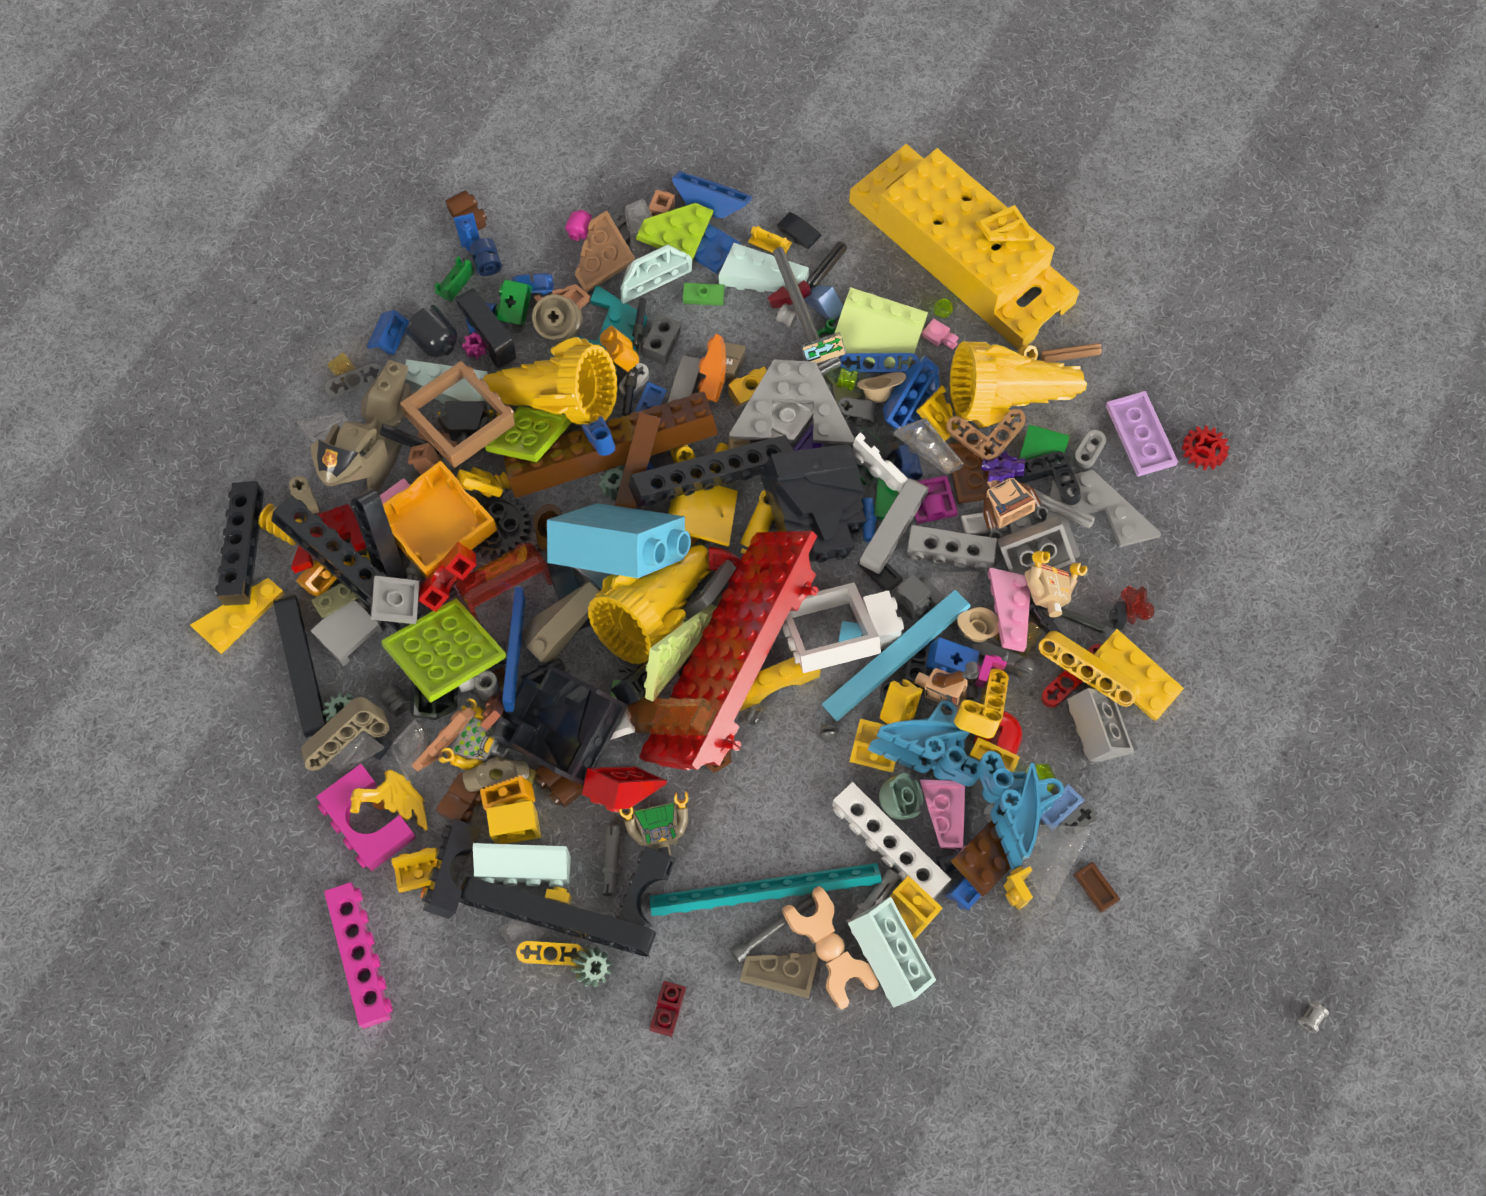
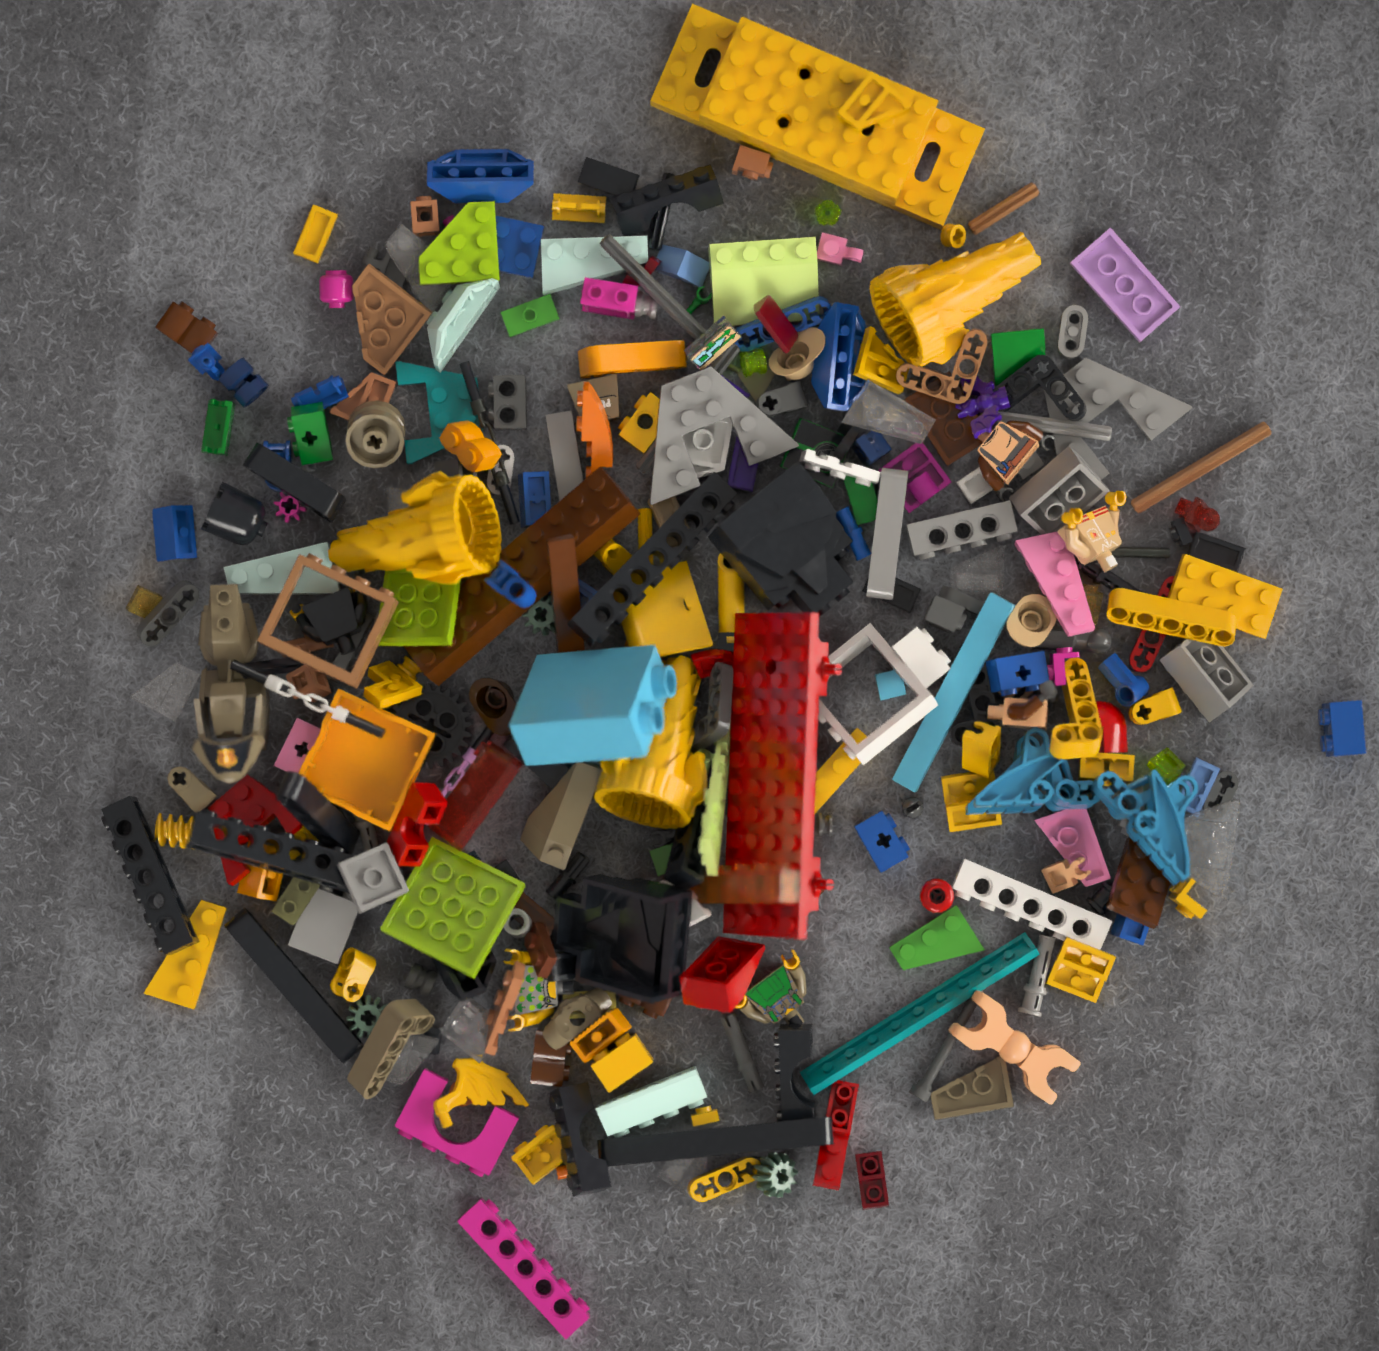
camera: 25 degrees left, 20 degrees up
(349, 671) = (353, 973): none -> yellow piece
(430, 473) = (275, 683): none -> piece
(514, 650) = (528, 870): blue tile -> none
(583, 192) = (315, 234): none -> yellow tile
(647, 968) = (832, 1157): none -> red slope
(761, 339) = (631, 357): none -> light orange beam
(763, 294) = (609, 298): none -> dark pink window
(792, 757) = (868, 832): none -> blue brick
(804, 840) = (937, 941): none -> bright green wing
(816, 795) = (946, 894): none -> red head
(858, 255) = (639, 206): none -> black arch
(875, 355) = (776, 323): none -> dark red slope
(892, 952) = (1081, 1025): light aqua slope -> none
(901, 797) = (1023, 852): sand green cylinder -> none
(903, 257) = (752, 163): none -> nougat brick
(925, 829) = (1064, 875): none -> light nougat plate
(1033, 707) = (1127, 687): none -> blue piece
(1052, 734) = (1159, 706): none -> yellow piece
(1096, 887) = (1267, 856): reddish brown tile -> none
(1143, 641) = (1216, 551): none -> black tile
(1152, 578) = (1201, 467): none -> medium nougat axle
(1196, 807) = (1342, 728): none -> blue brick
(1205, 448) = (1198, 263): red gear -> none

